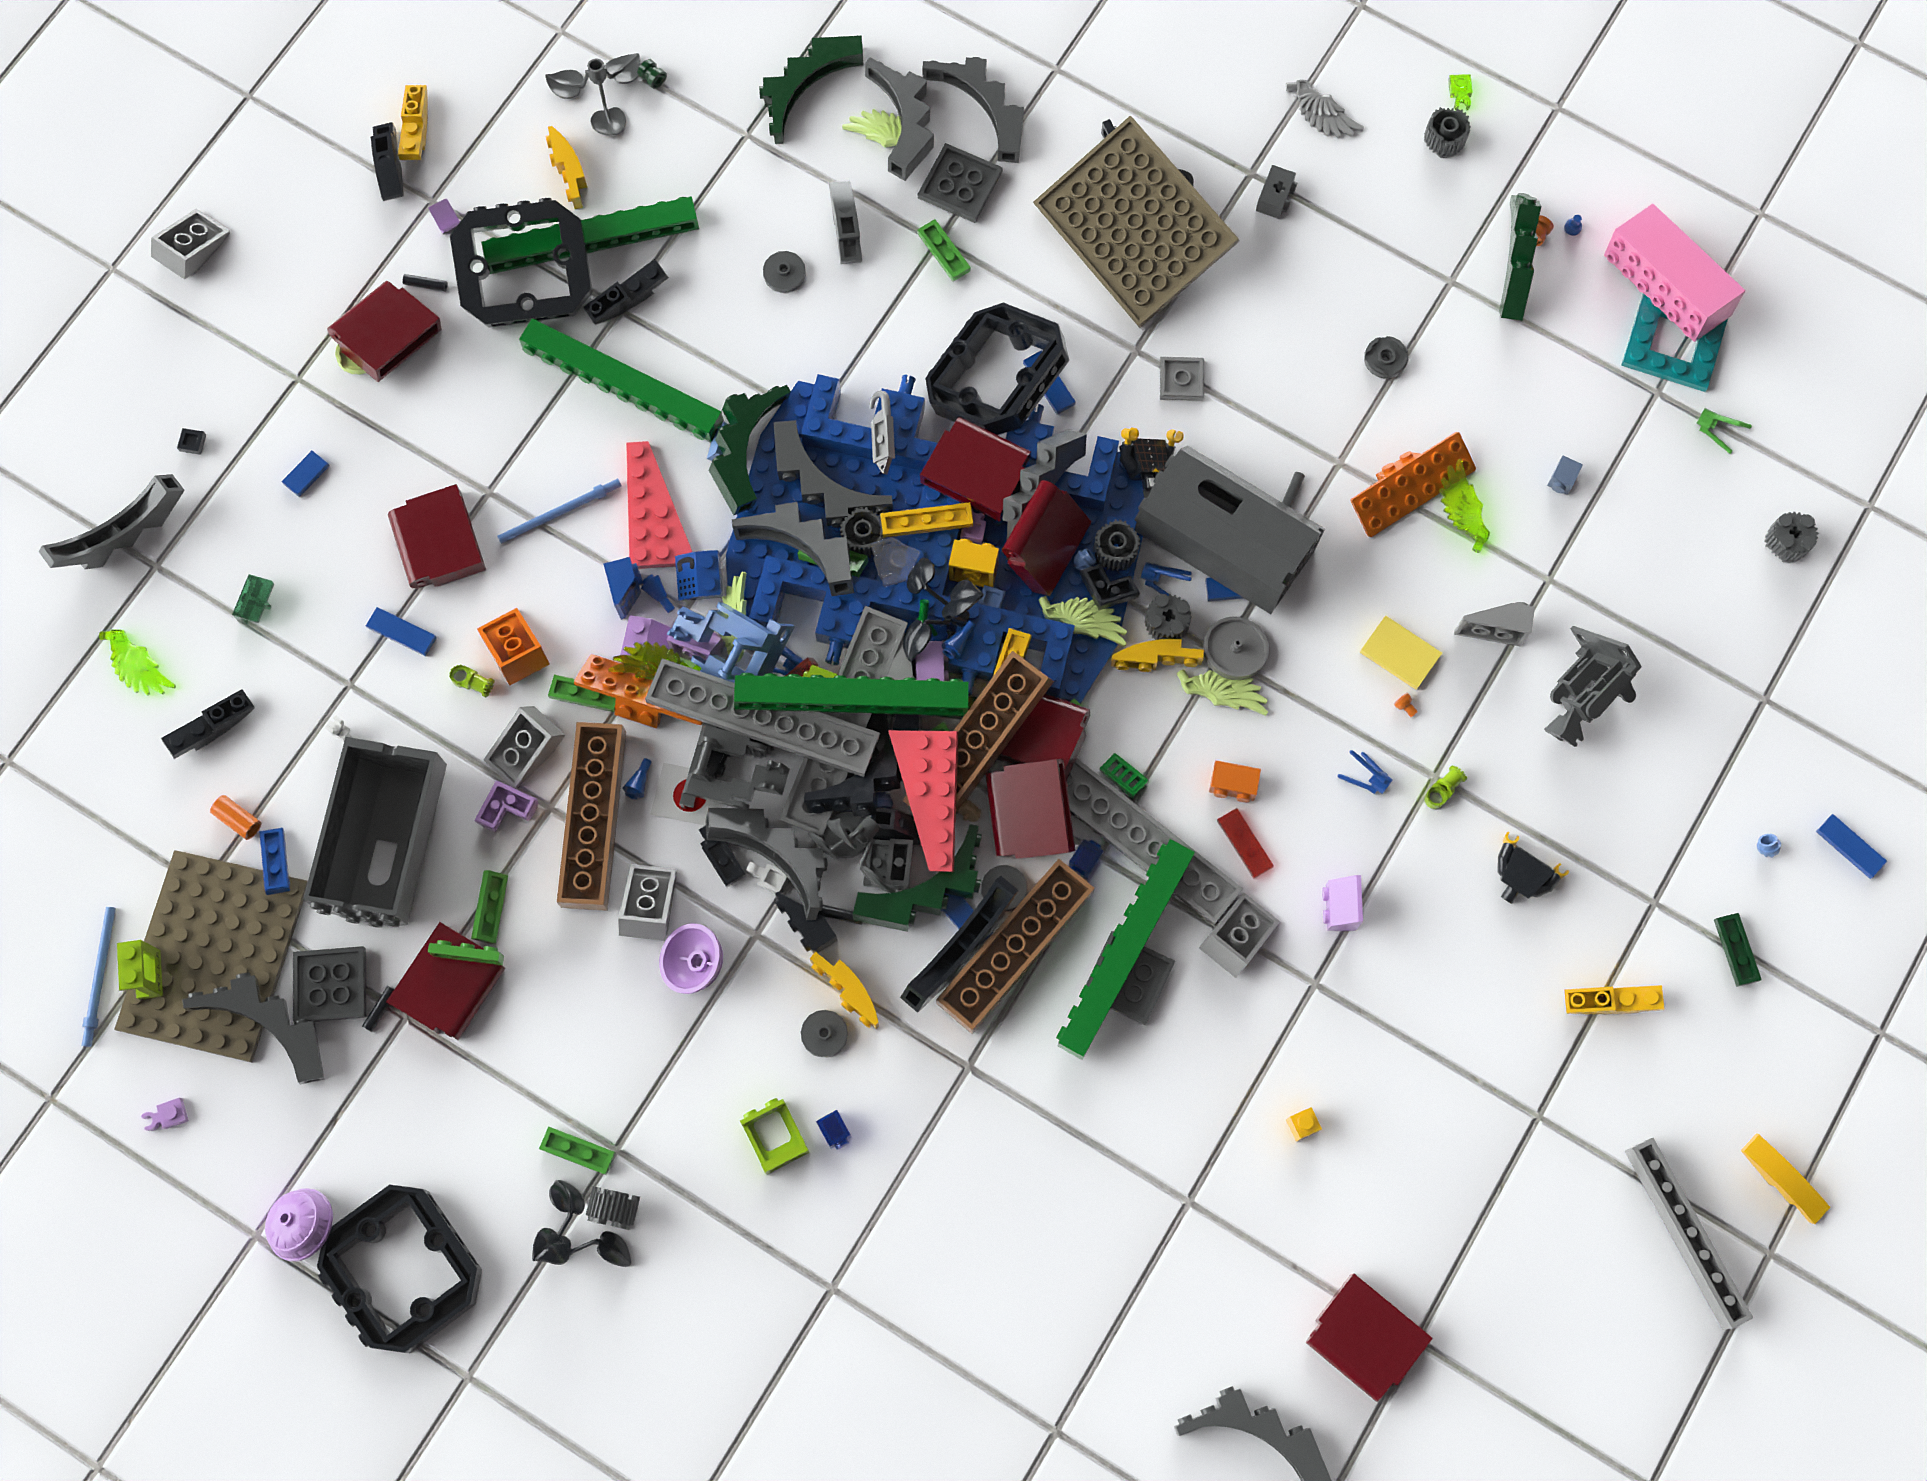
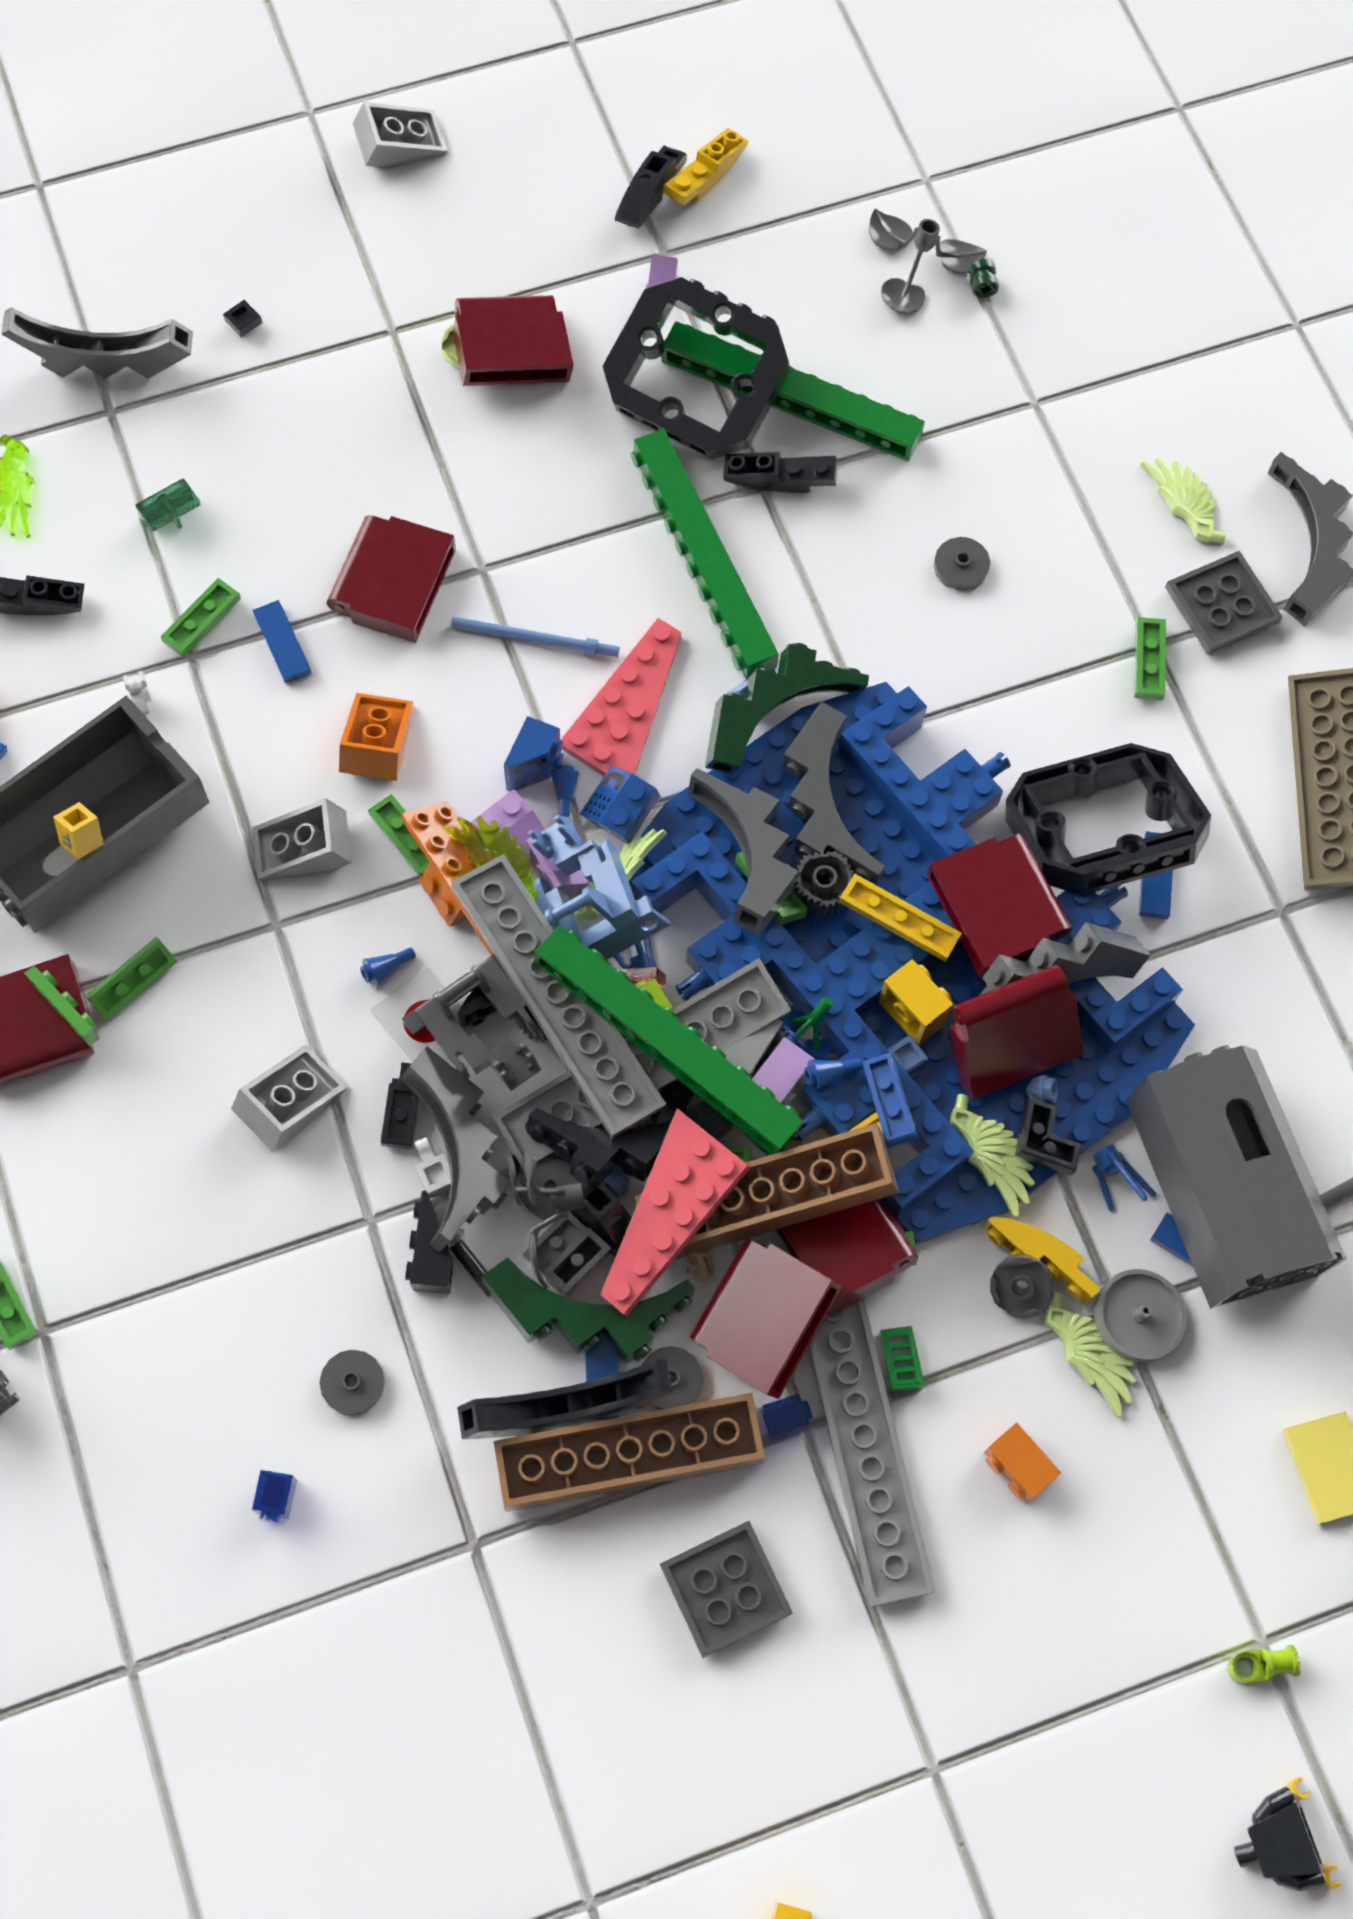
camera: 35 degrees right, 5 degrees down
(305, 473) = (322, 424): blue tile -> none
(336, 654) = (200, 617): none -> bright green plate
(394, 839) = (78, 830): none -> yellow brick
(425, 282) = (590, 325): black piece -> none
(472, 680) = (308, 740): lime connector -> none
(504, 799) = (232, 880): lavender brick -> none
(567, 164) = (824, 310): yellow slope -> none
(591, 816) = (305, 965): medium nougat brick -> none
(682, 958) = (279, 1191): lavender hat -> none
(783, 1154) = (205, 1478): lime window -> none
(823, 58) = (1177, 381): dark green arch -> none
(845, 222) = (1066, 557): dark grey slope -> none
(854, 995) = (417, 1365): yellow slope -> none
(882, 433) = (926, 793): light grey plate -> none
(893, 560) = (831, 934): clear plate -> none
(907, 96) = (1209, 522): dark grey arch -> none
(962, 597) = (850, 1036): black plant -> none
(976, 532) = (947, 972): lavender plate -> none
(1006, 631) = (890, 1100): none -> blue tile
(1116, 557) = (1080, 1112): dark grey brick -> none
(1125, 950) = (746, 1553): green brick -> none
(1146, 456) = (1199, 1027): black torso -> none
(1164, 691) = (1022, 1301): none -> dark grey plate
(1172, 608) = (1095, 1210): dark grey brick -> none
(1182, 378) = (1310, 977): light grey tile -> none
(1239, 935) = (889, 1642): light grey slope -> none
(1245, 843) = (979, 1543): clear red tile -> none
(1343, 904) = (1036, 1703): slope -> none
(1379, 779) = (1193, 1593): blue plant -> none
(1404, 702) = (1291, 1528): orange piece -> none

